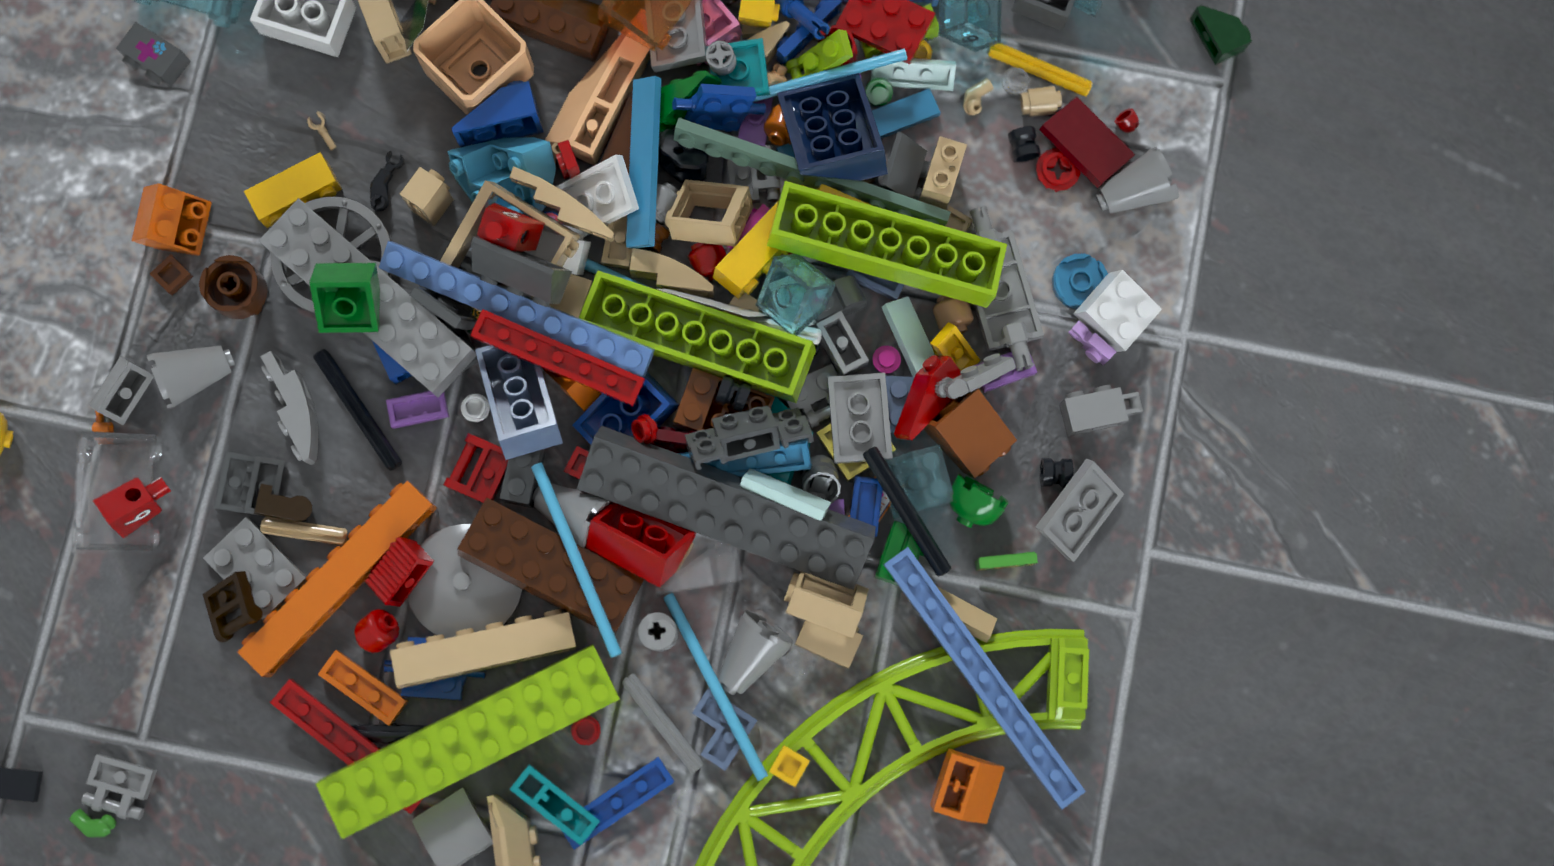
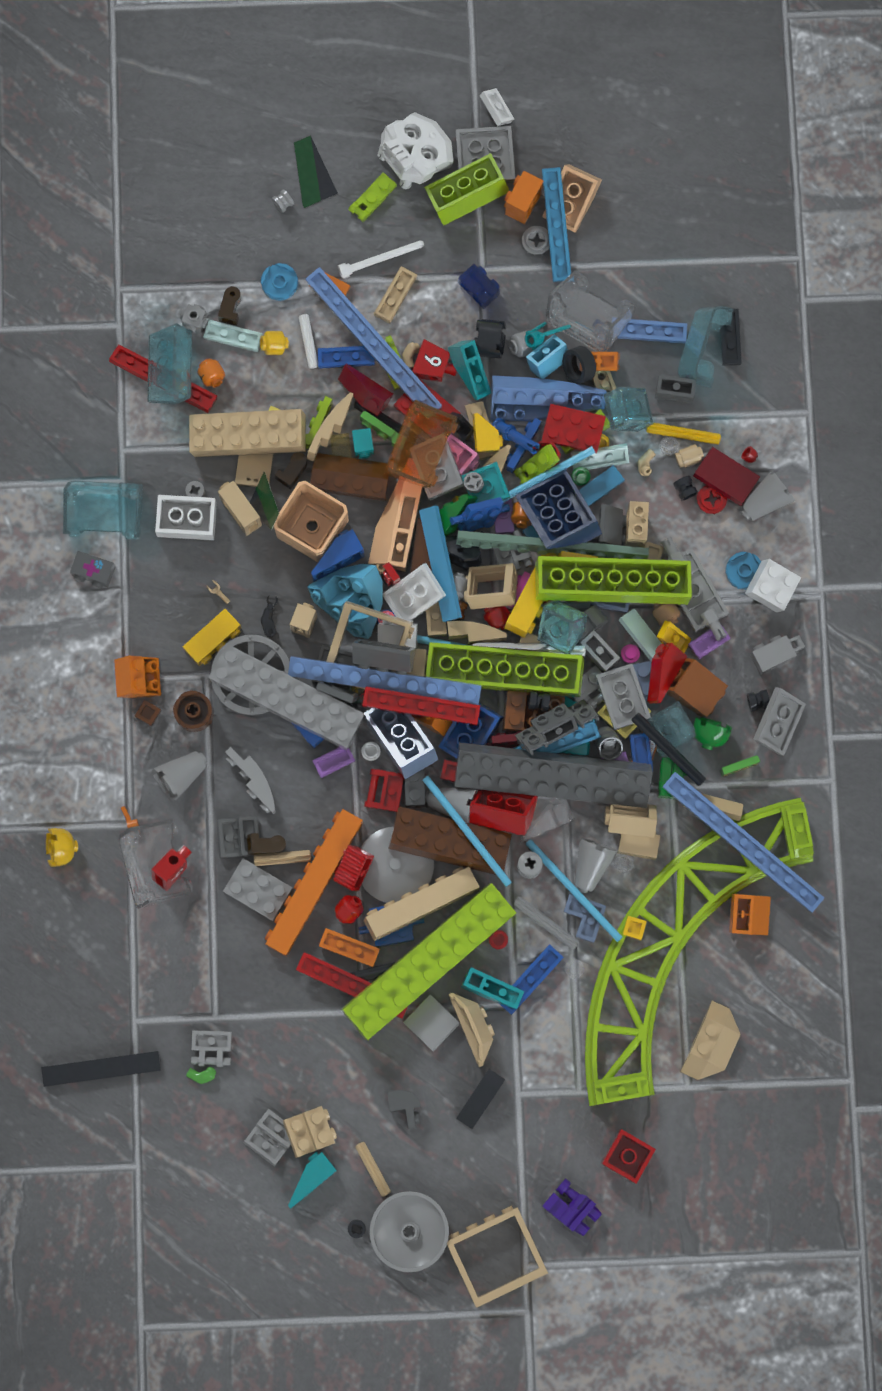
camera: 10 degrees left, 0 degrees up
(121, 390) = (140, 796): light grey brick -> none
(226, 598) = (247, 912): dark brown plate -> none
(346, 297) = (279, 700): green slope -> none
(357, 409) = (294, 771): black axle -> none
(507, 226) = (370, 630): red torso -> none
(571, 211) = (403, 608): tan slope -> none
(644, 429) = (488, 738): red plate -> none
(777, 75) = (510, 481): light nougat arm -> none
(785, 494) = (588, 757): light aqua tile -> none
(975, 376) = (691, 651): light grey hinge -> none
(1095, 346) = (764, 612): lavender plate -> none
(1220, 33) = (798, 380): dark green slope -> none

